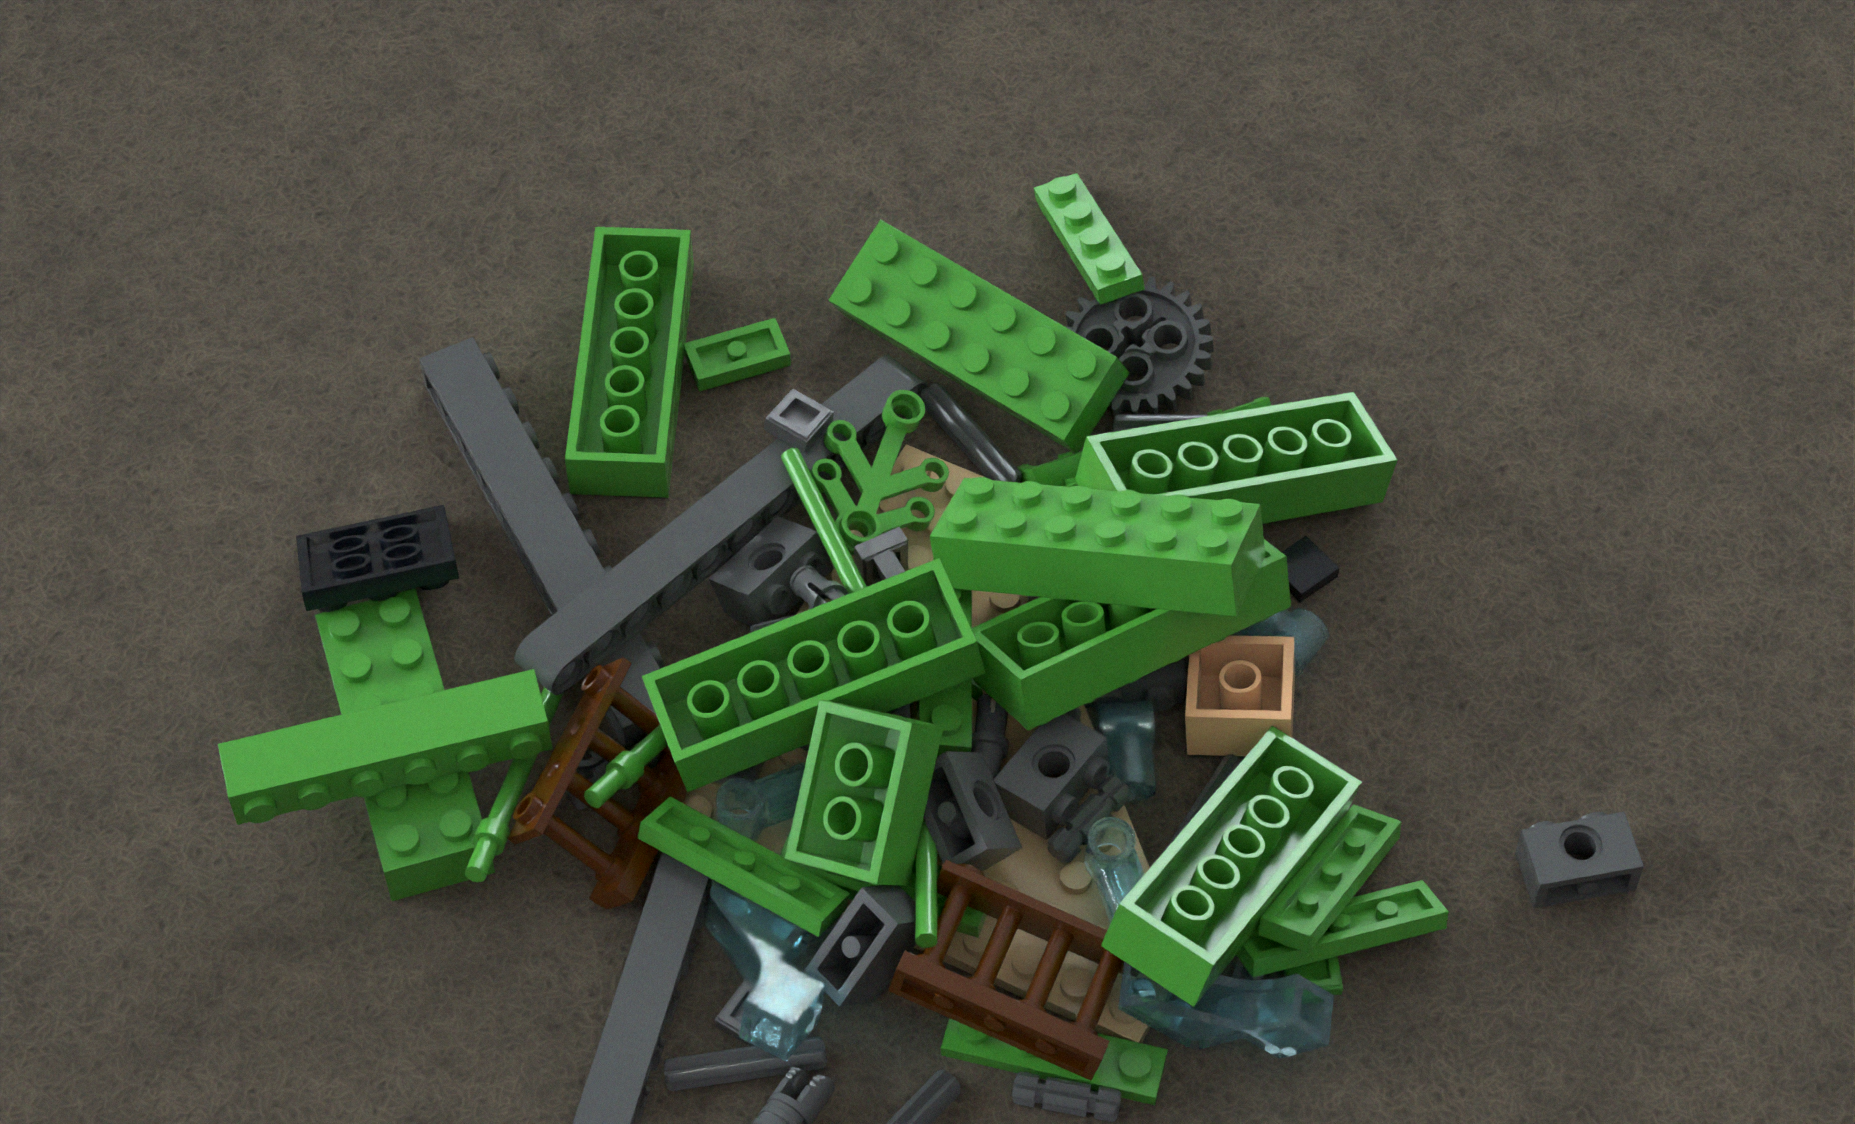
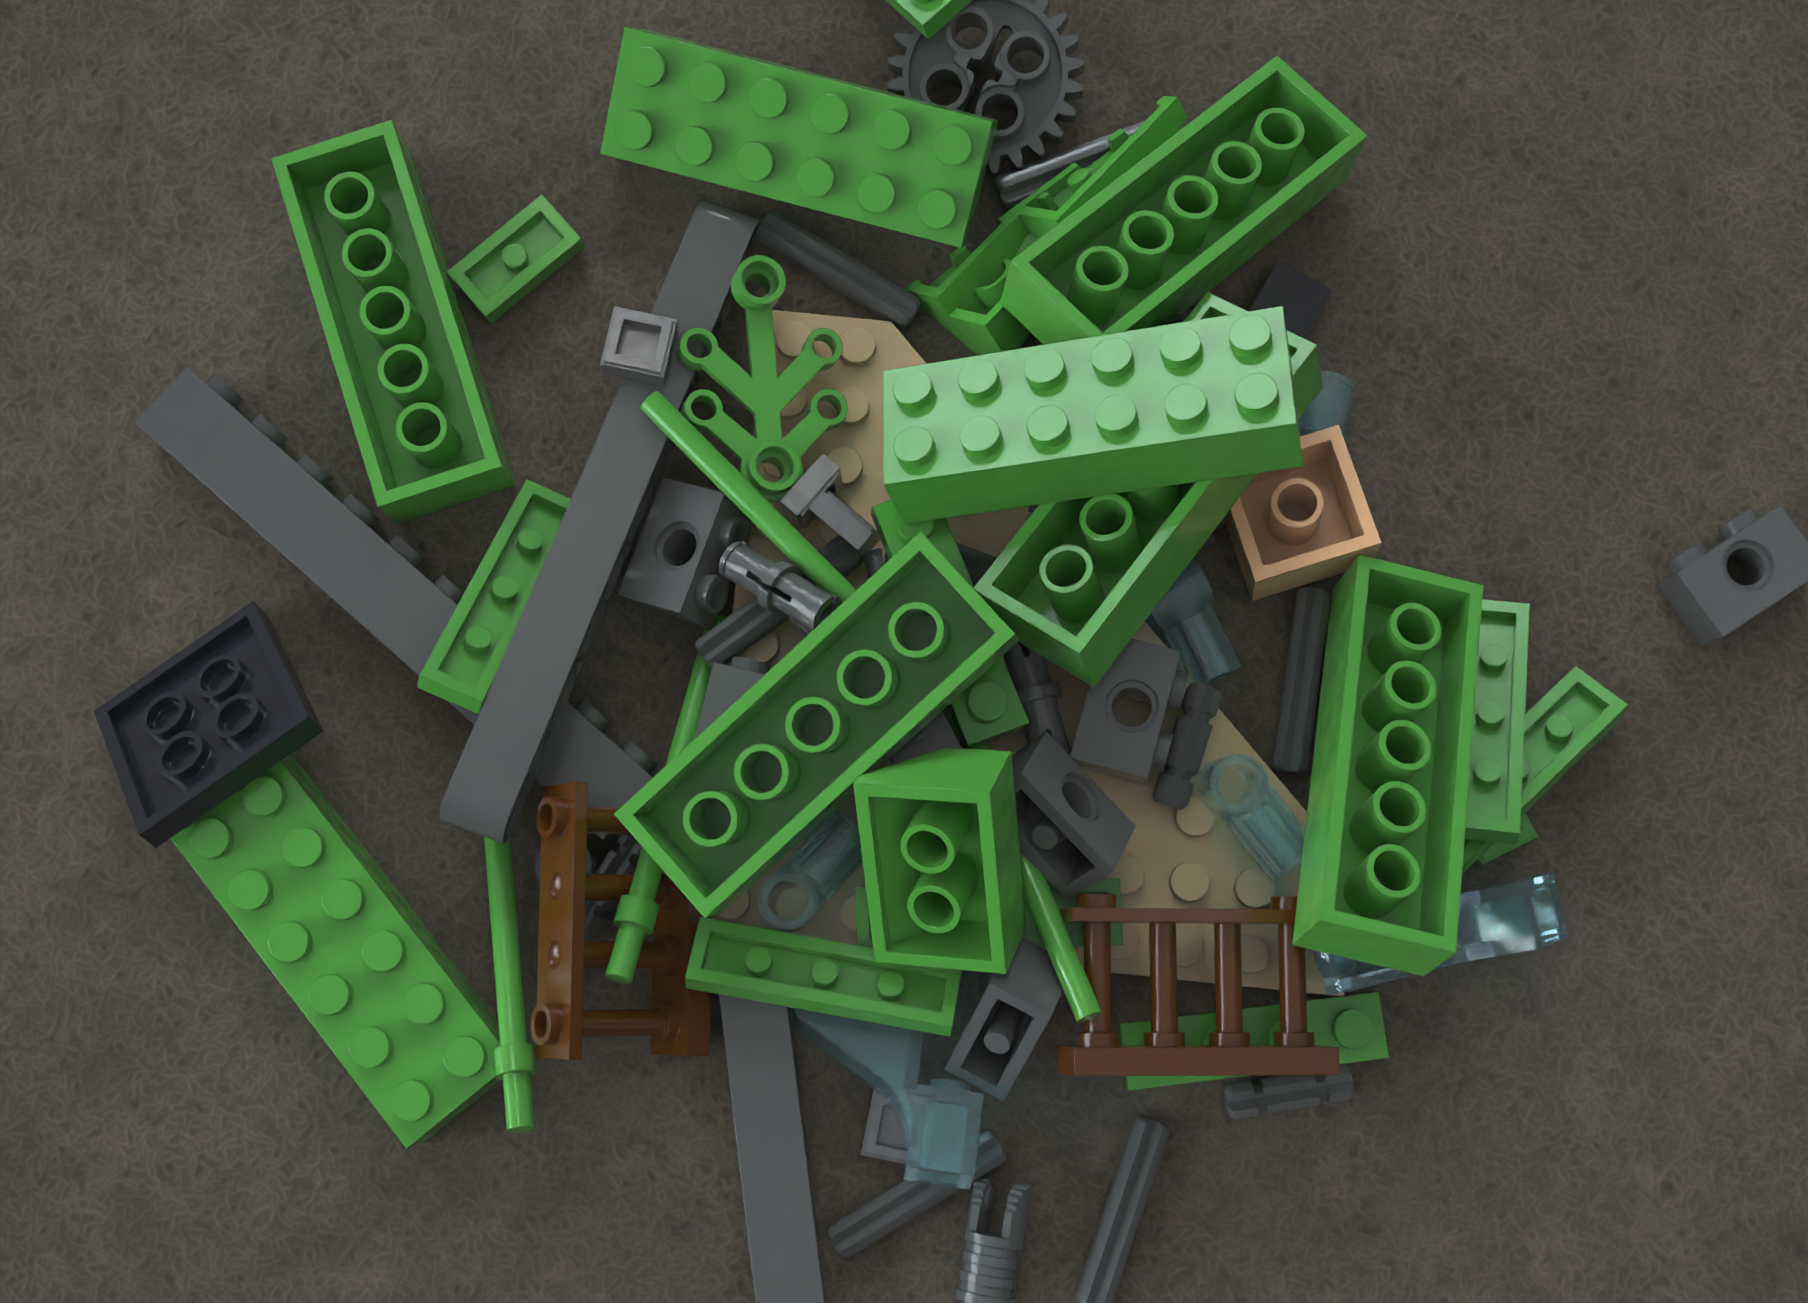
camera: 20 degrees left, 25 degrees up
(385, 747) = (335, 1008): bright green brick -> none
(589, 558) = (491, 606): none -> bright green plate

